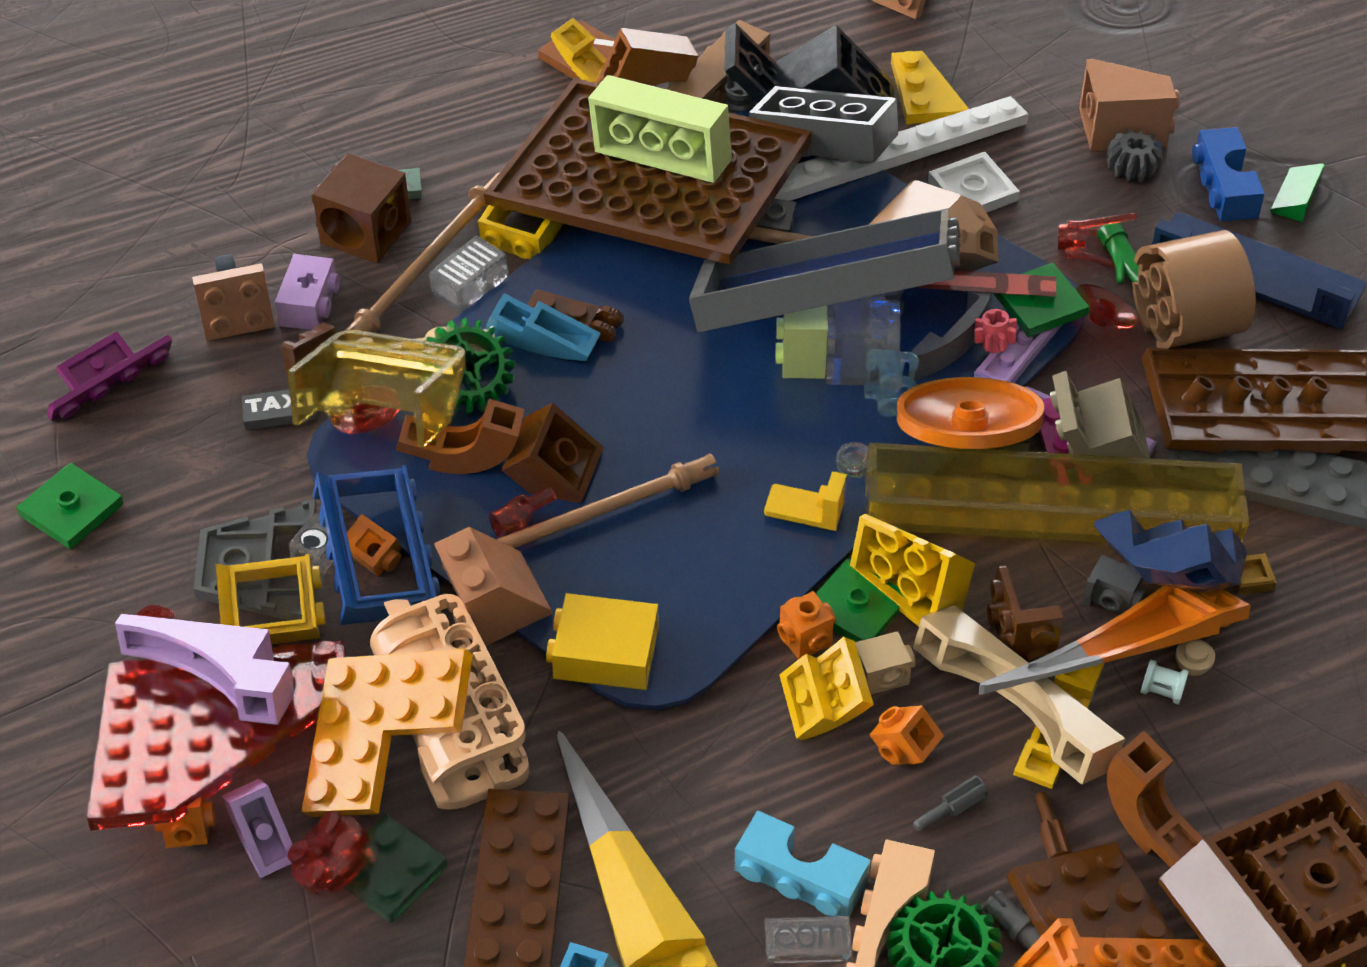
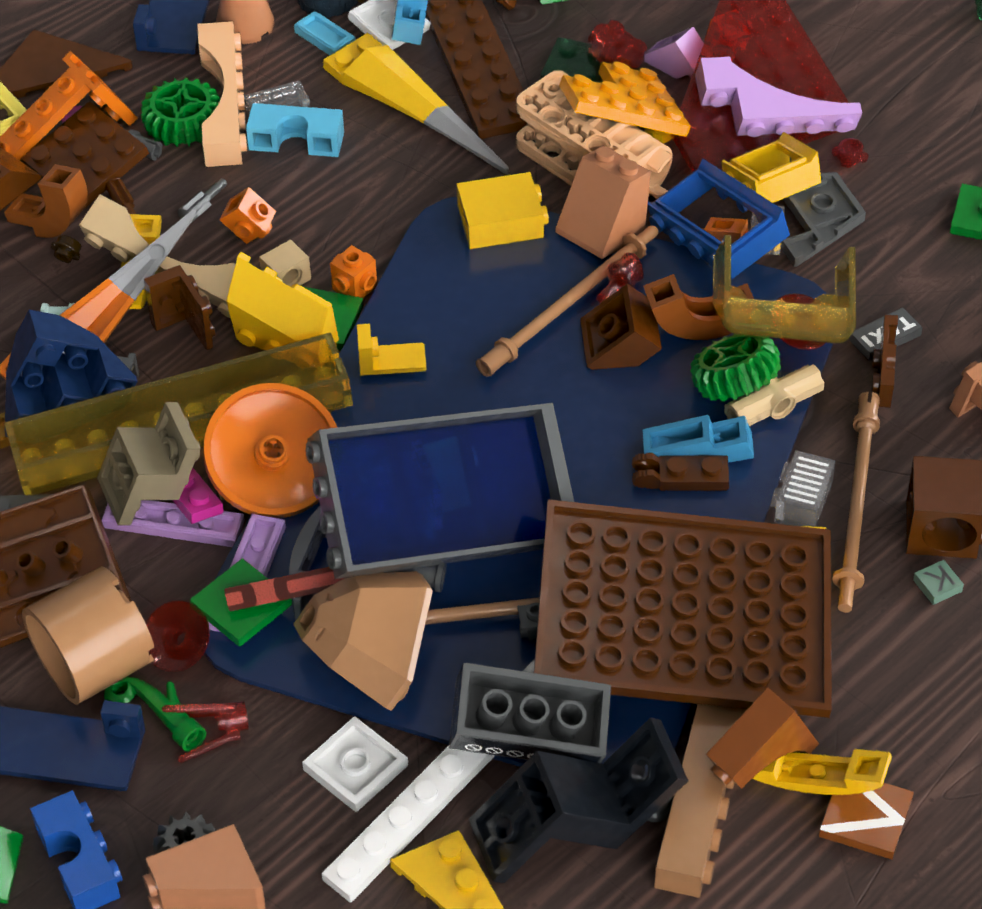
camera: 160 degrees right, 0 degrees up
(306, 292) = (938, 427): lavender brick -> none
(660, 128) = (681, 592): yellowish green brick -> none
(826, 690) = (317, 233): yellow slope -> none
(852, 459) = (366, 412): clear tile -> none
(995, 330) = (273, 542): coral gear -> none

